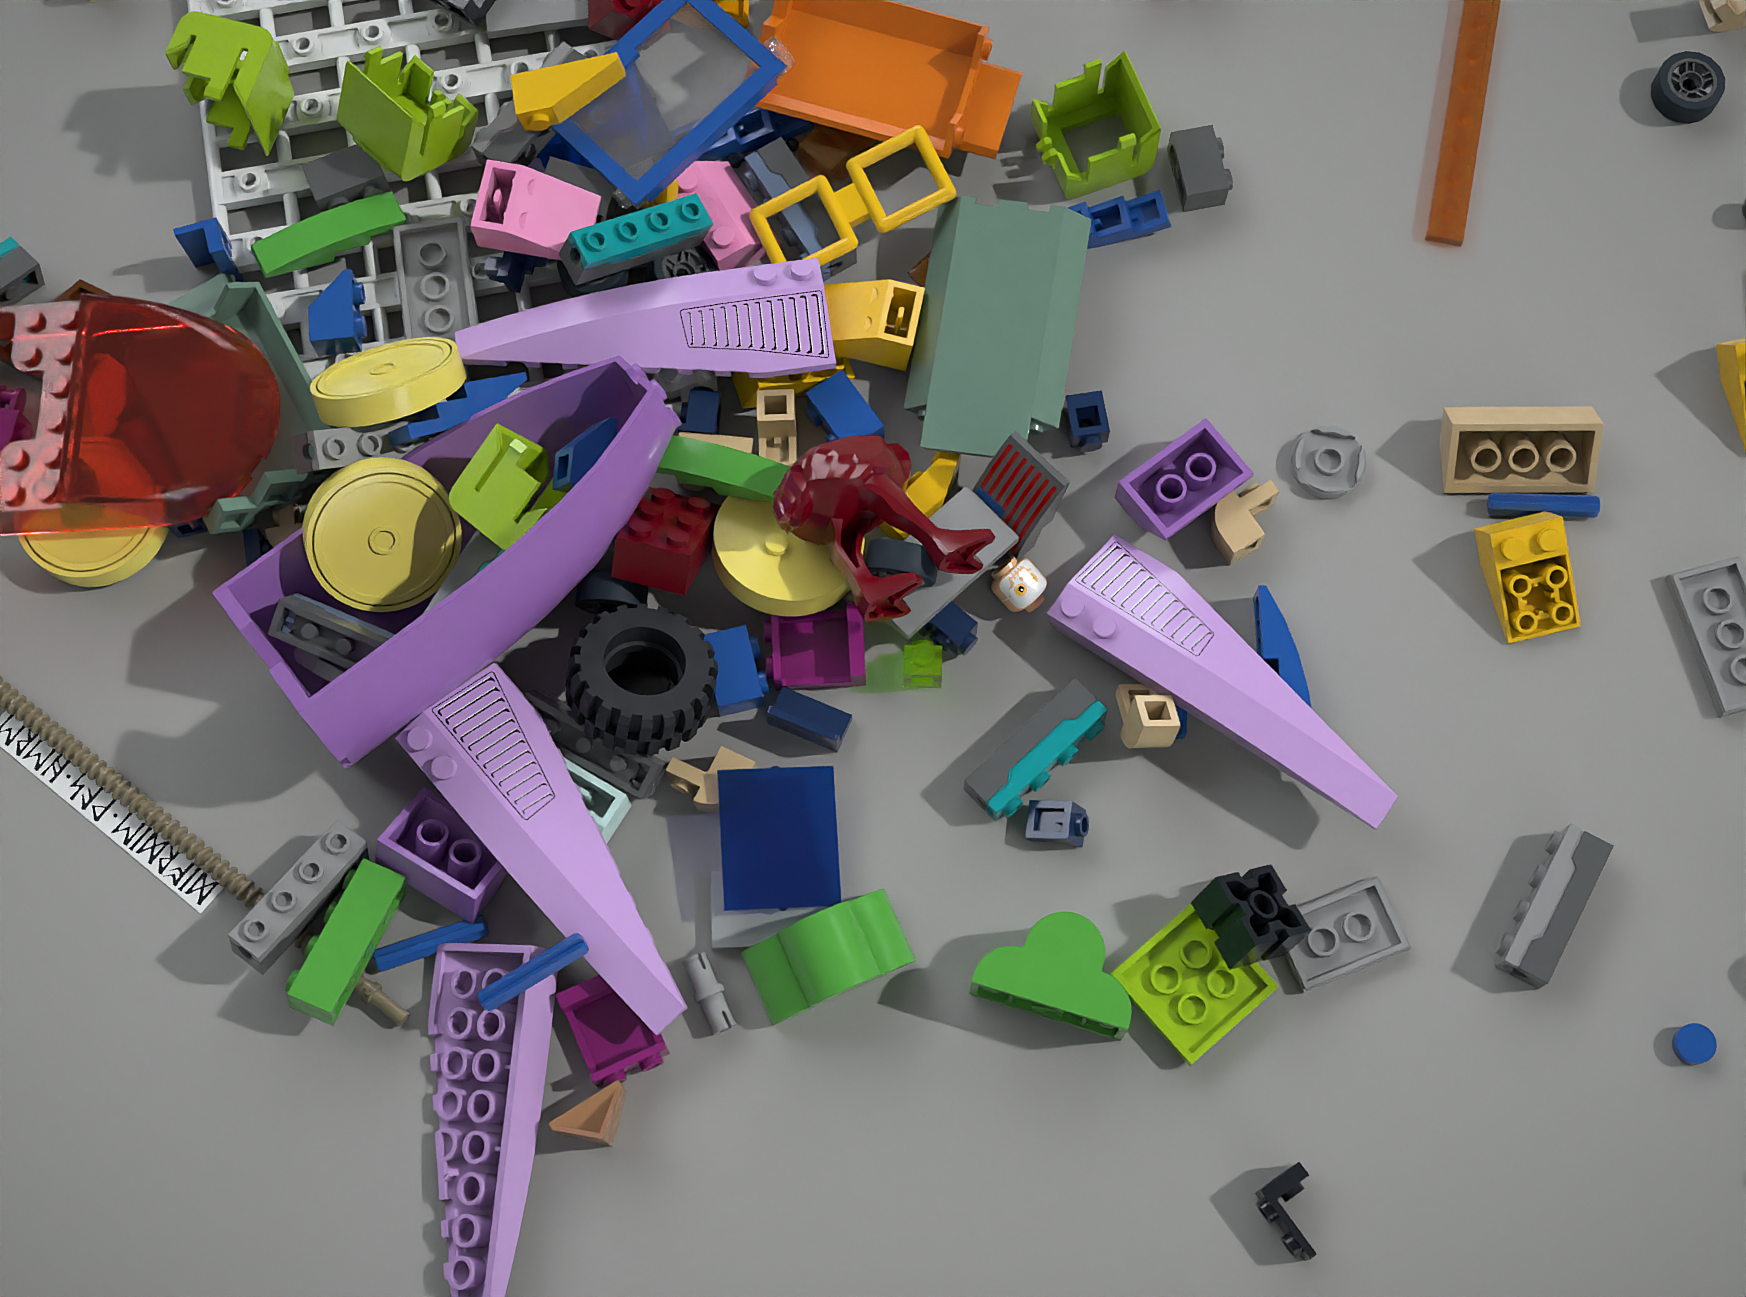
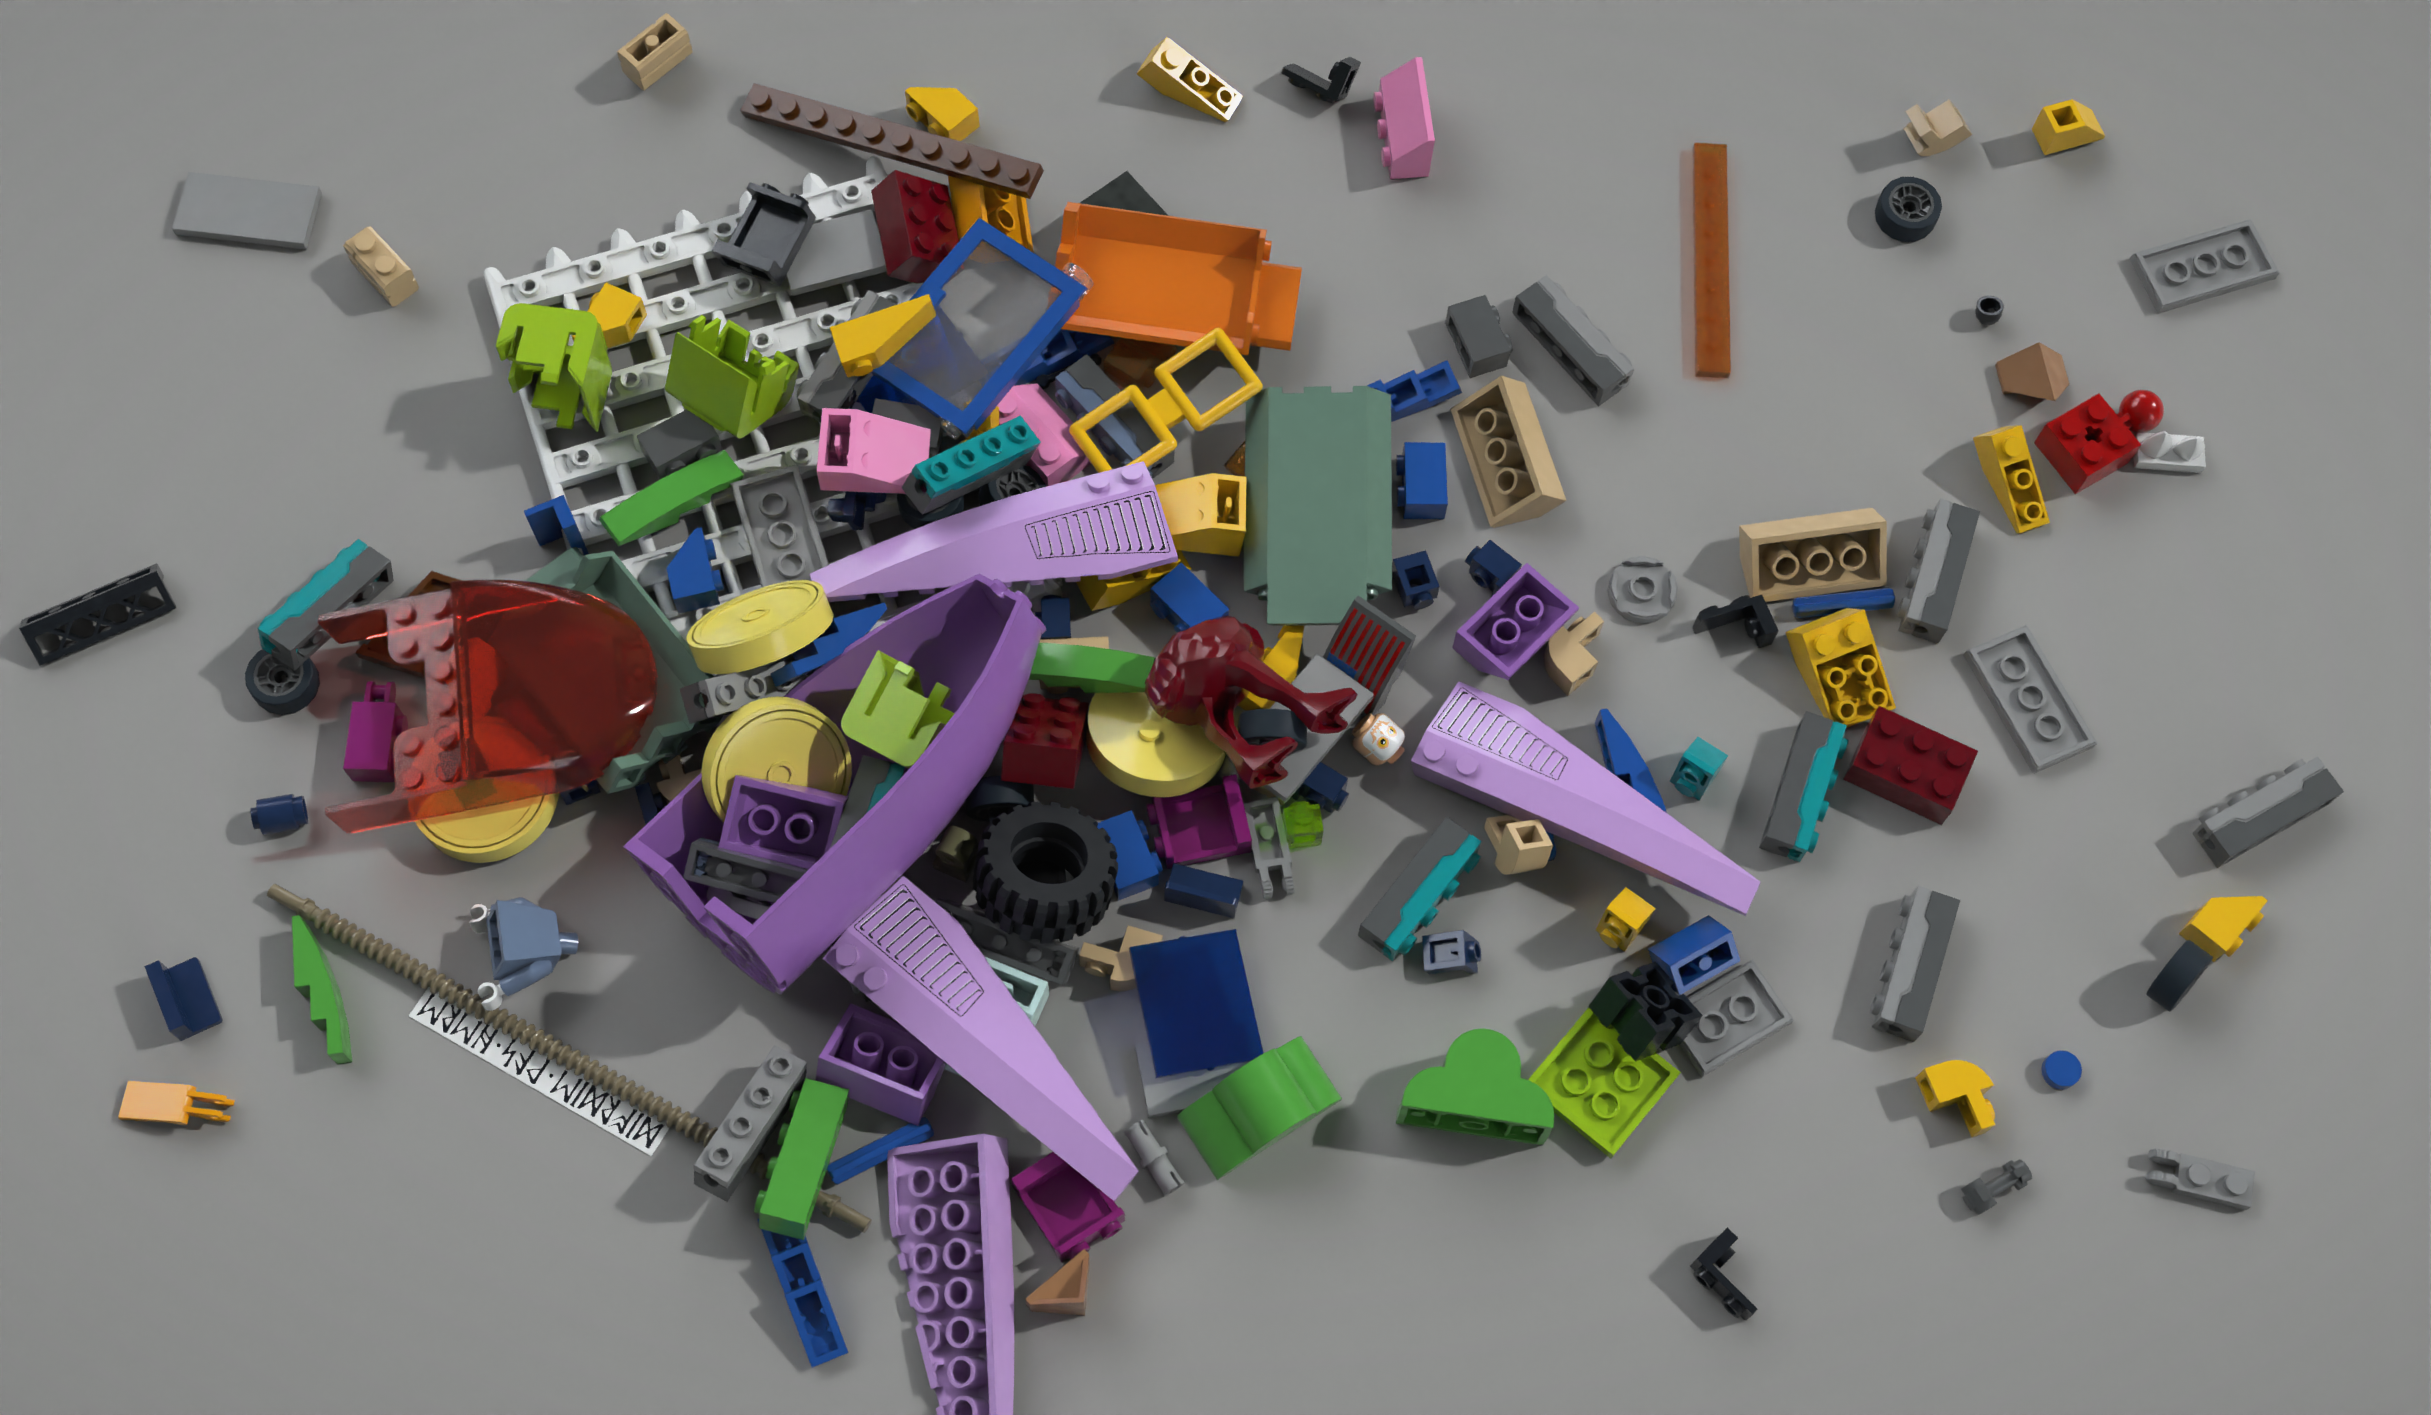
camera: 15 degrees left, 5 degrees down
(102, 679) = (521, 944): none -> sand blue torso
(304, 37) = (618, 314): none -> yellow slope
(330, 1085) = (806, 1297): none -> blue slope
(375, 586) = (781, 821): none -> medium lavender slope
(533, 972) = (991, 1157): blue axle -> none
(555, 643) = (956, 853): none -> olive leg
(582, 454) = (958, 672): blue slope -> none
(777, 425) = (1128, 621): tan brick -> none
(885, 678) = (1269, 843): none -> light grey hinge
(1081, 103) = (1362, 288): lime piece -> none
(1114, 315) = (1423, 480): none -> blue brick
(1170, 416) = (1491, 566): none -> dark blue brick
(1208, 297) = (1507, 453): none -> tan slope
(1246, 813) = (1624, 919): none -> yellow slope
(1299, 185) = (1573, 340): none -> dark grey piece
(1316, 862) = (1696, 953): none -> blue brick
(1353, 662) = (1698, 768): none -> teal slope
(1446, 510) = (1757, 616): none -> black bracket
(1465, 698) = (1803, 787): none -> piece
(1580, 1043) = (1961, 1084): none -> yellow brick
(1582, 1167) = (1980, 1195): none -> dark grey bar
(1585, 691) = (1910, 765): none -> dark red brick
(1652, 484) = (1938, 570): none -> piece

